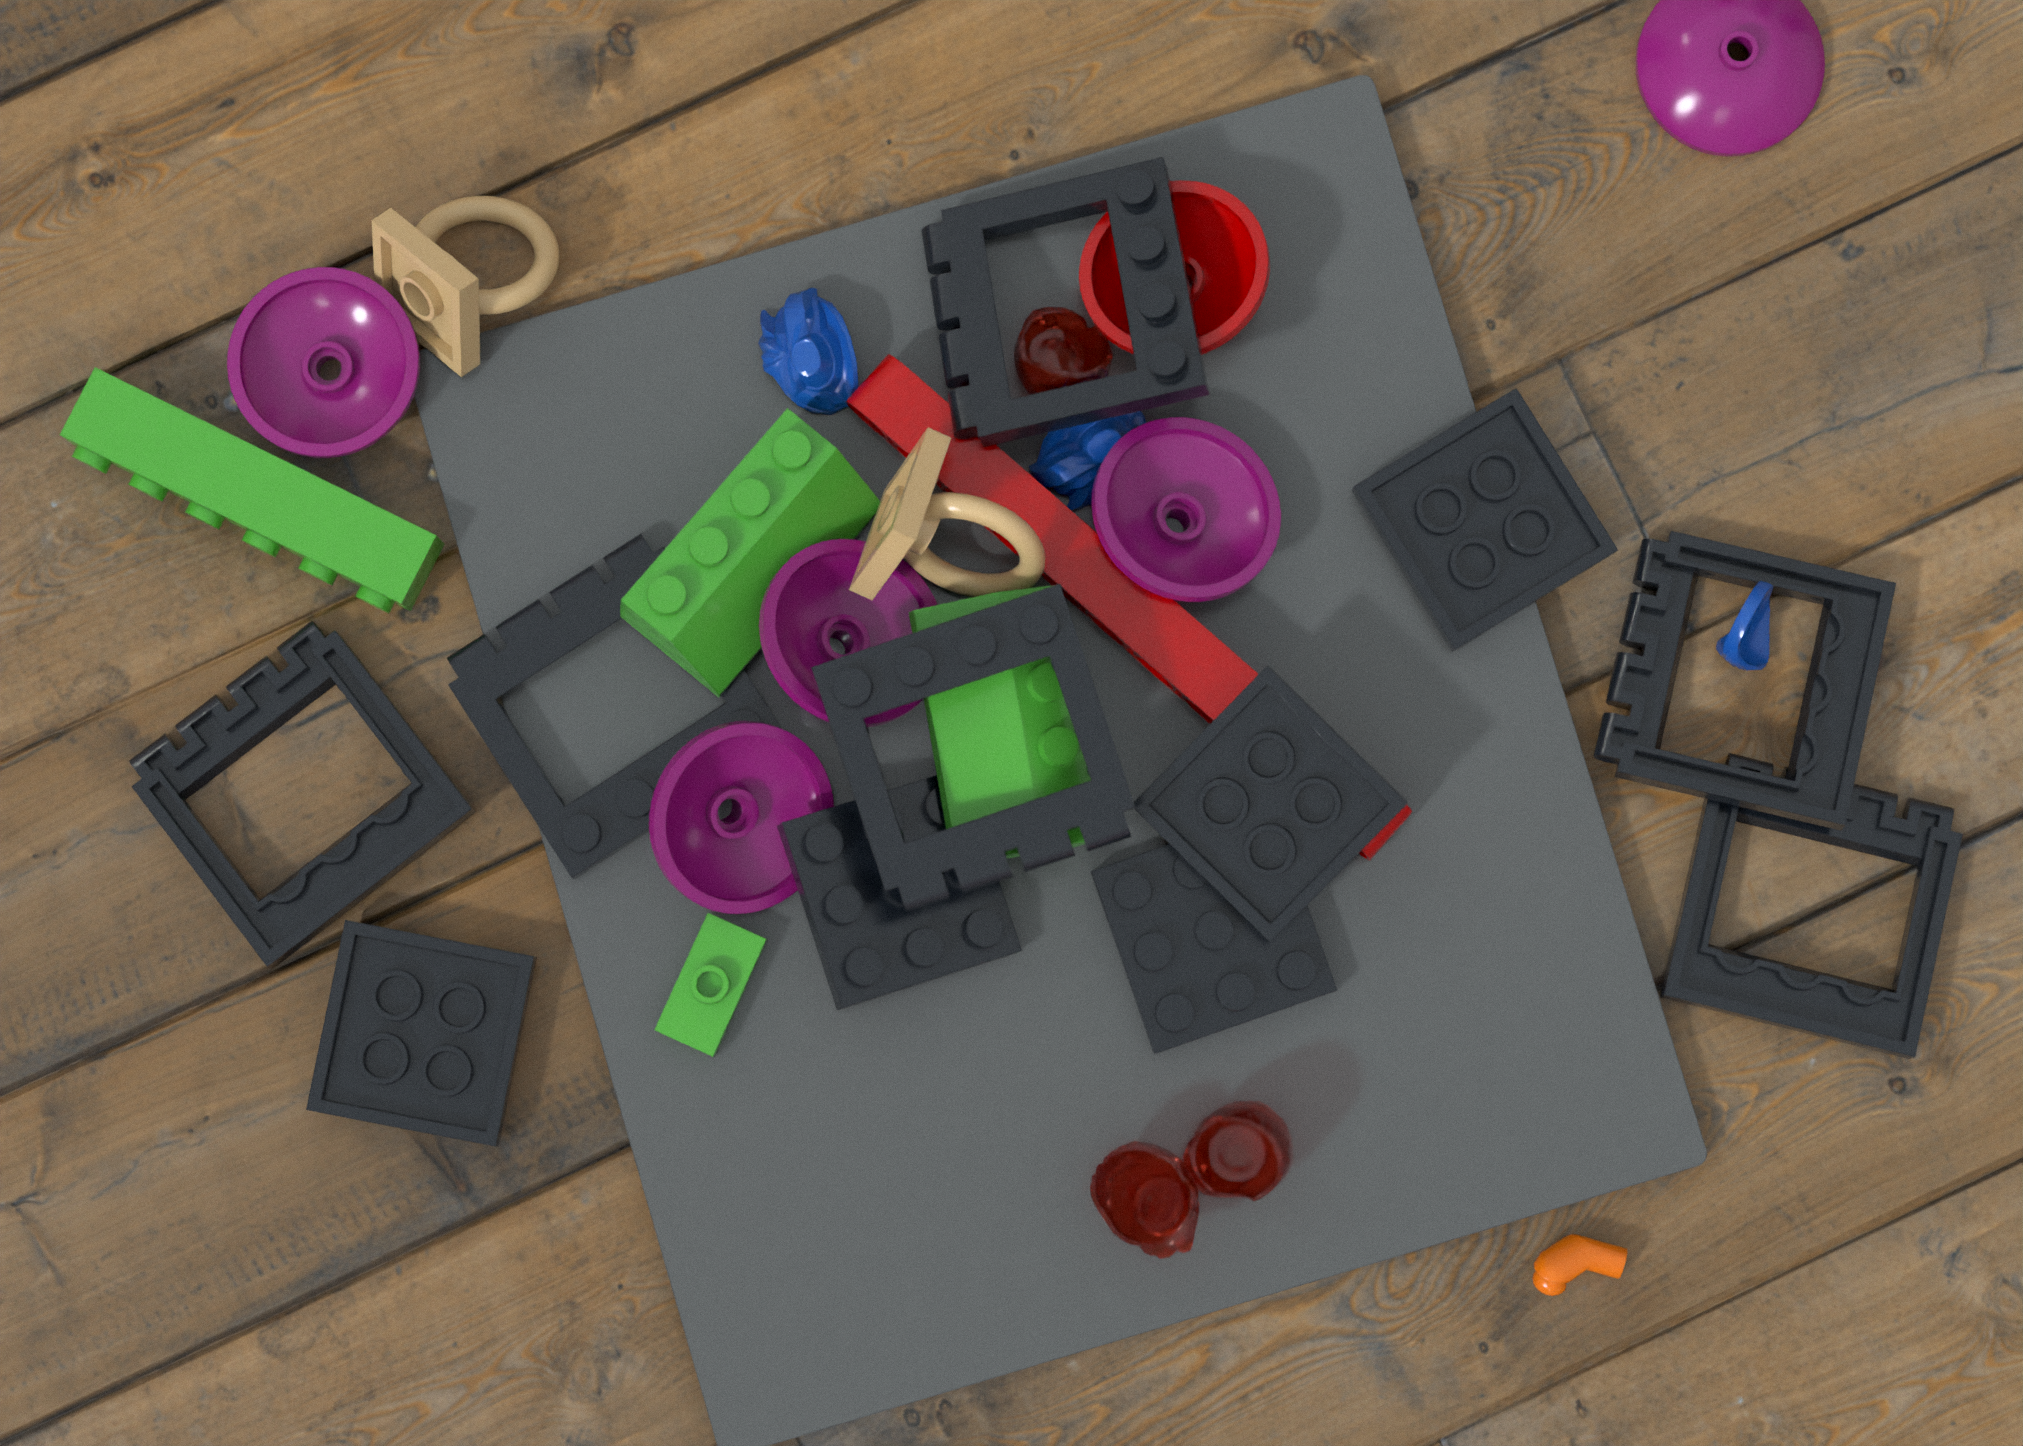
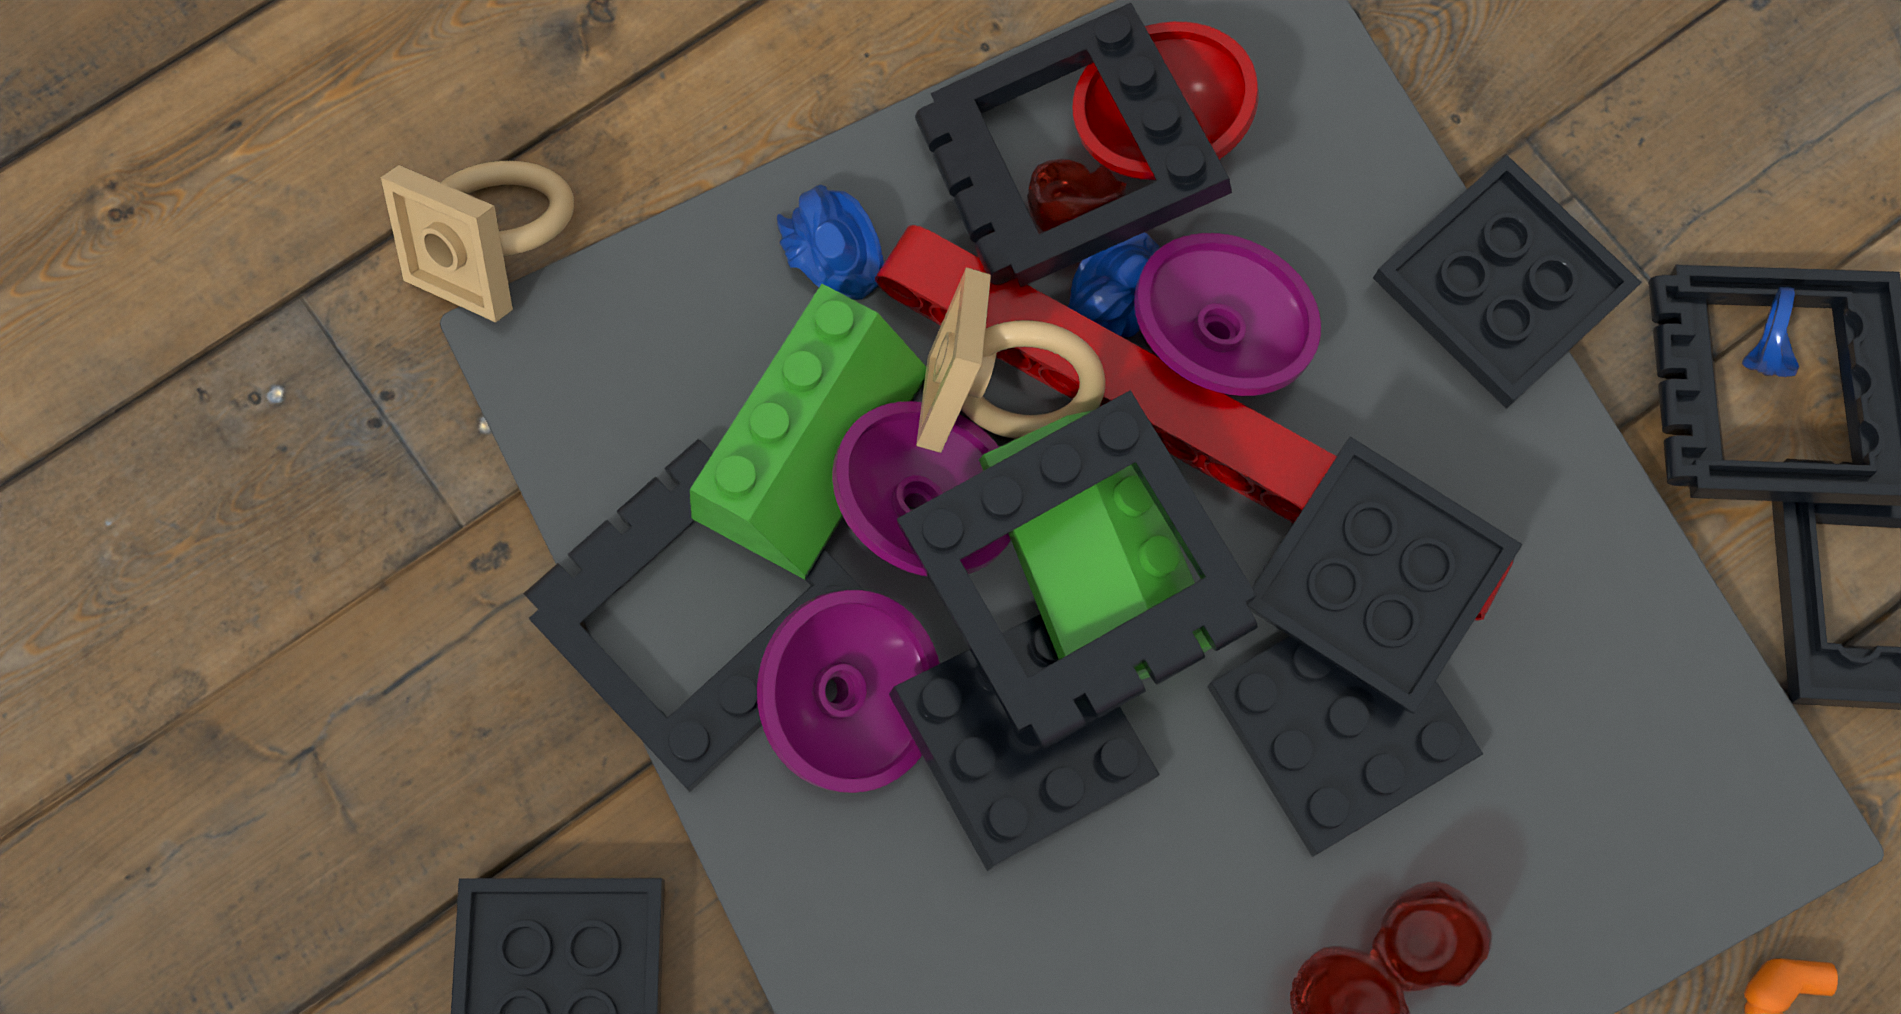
camera: 15 degrees left, 10 degrees down
(251, 489) = (302, 468): bright green brick -> none
(298, 328) = (334, 304): magenta dish -> none
(353, 863) = (455, 827): black hinge -> none
(710, 984) = (849, 872): bright green plate -> none

